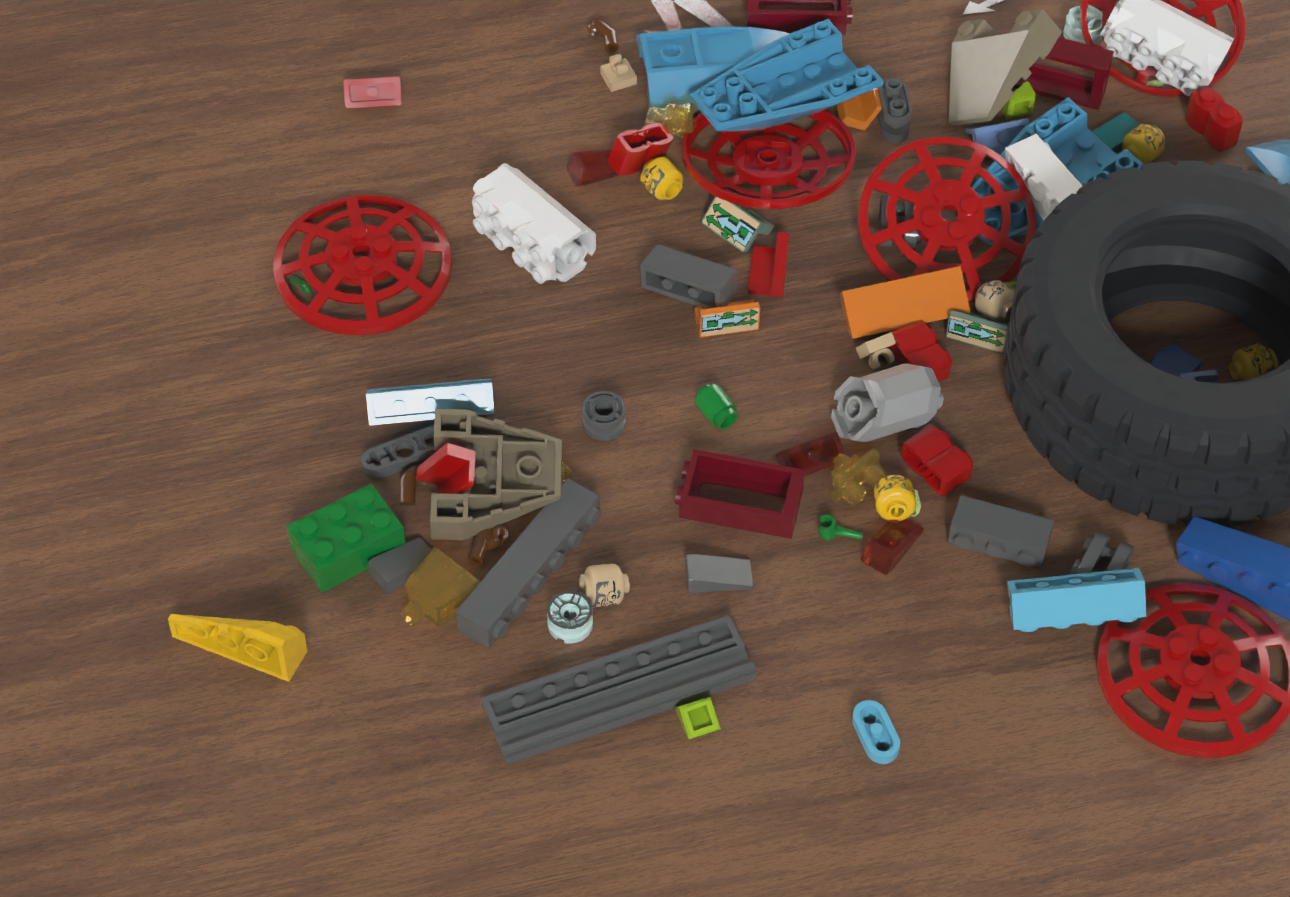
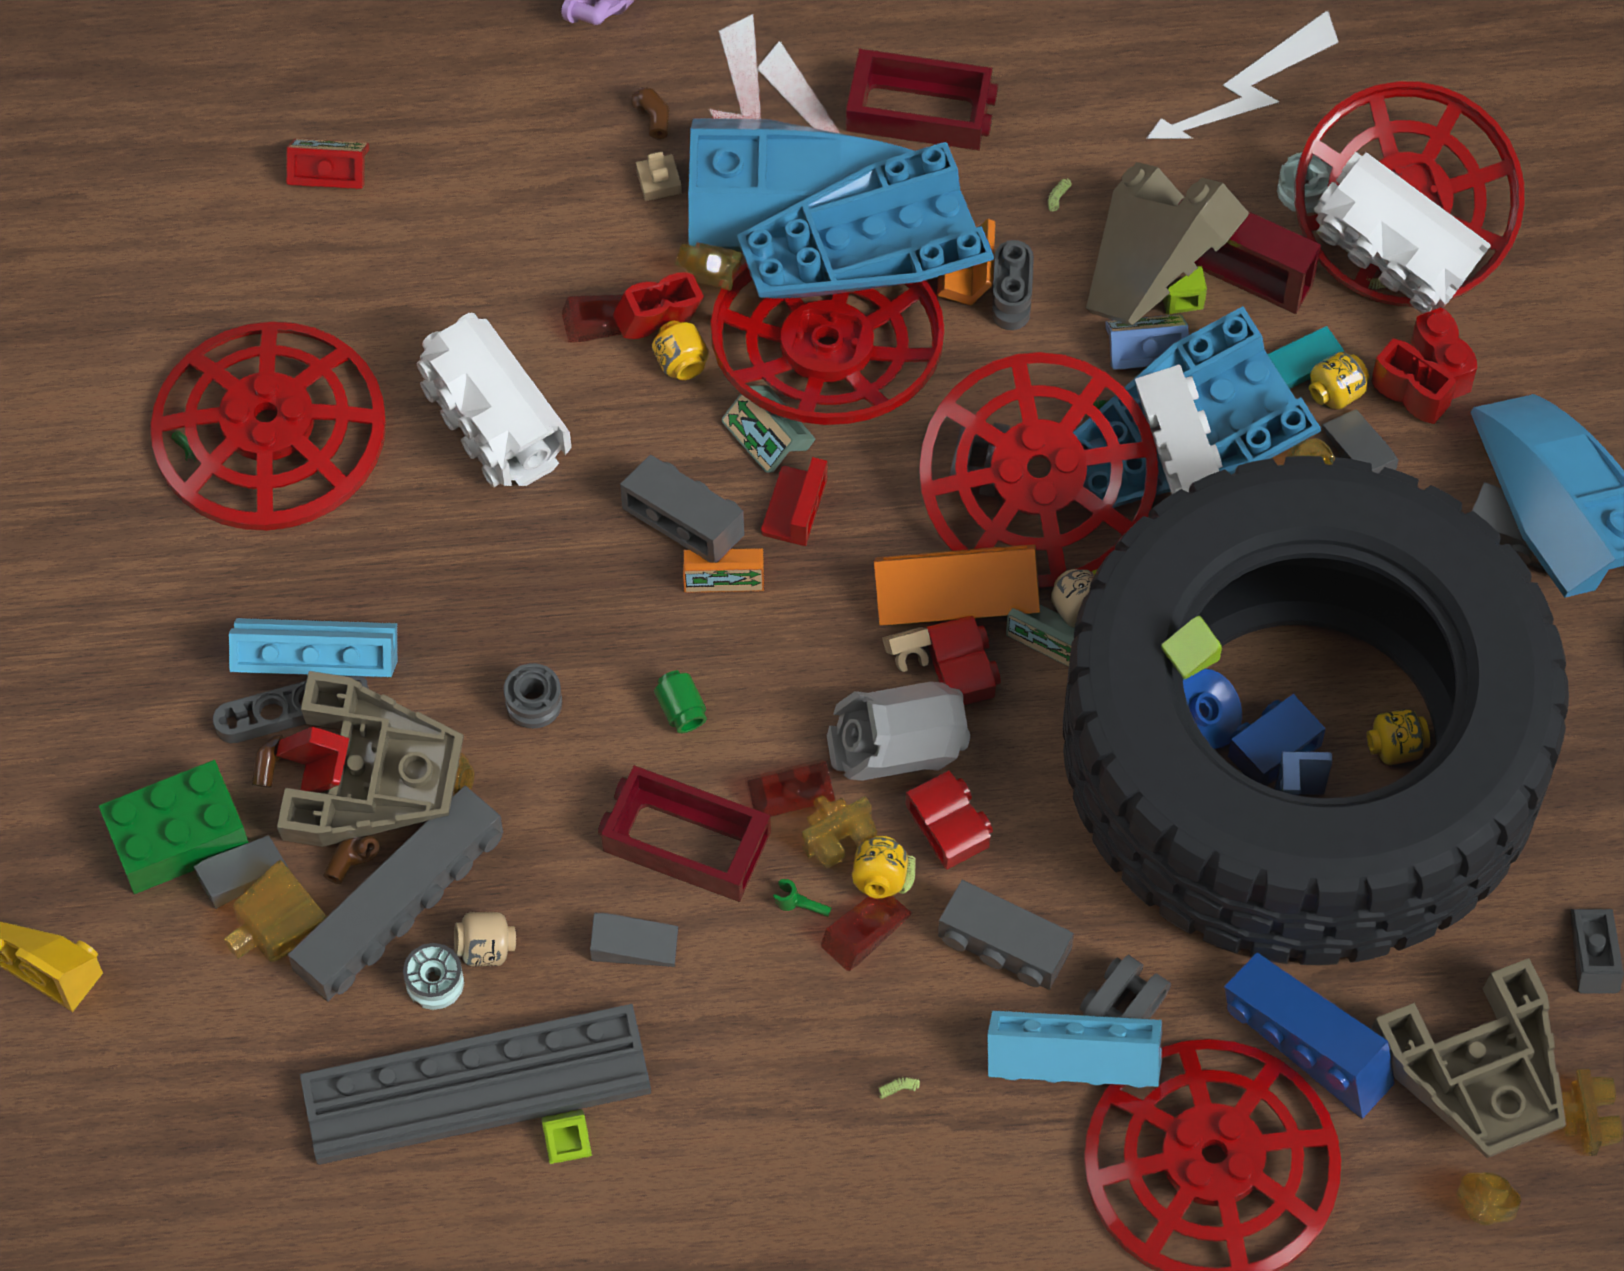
camera: 10 degrees right, 10 degrees up
(878, 734) = (782, 1192): medium azure plate -> none
(909, 52) = (1056, 195): none -> yellowish green leg
(950, 647) = (908, 1084): none -> yellowish green leg
(1113, 288) = (1192, 648): none -> lime slope
(1198, 136) = (1418, 383): none -> red brick

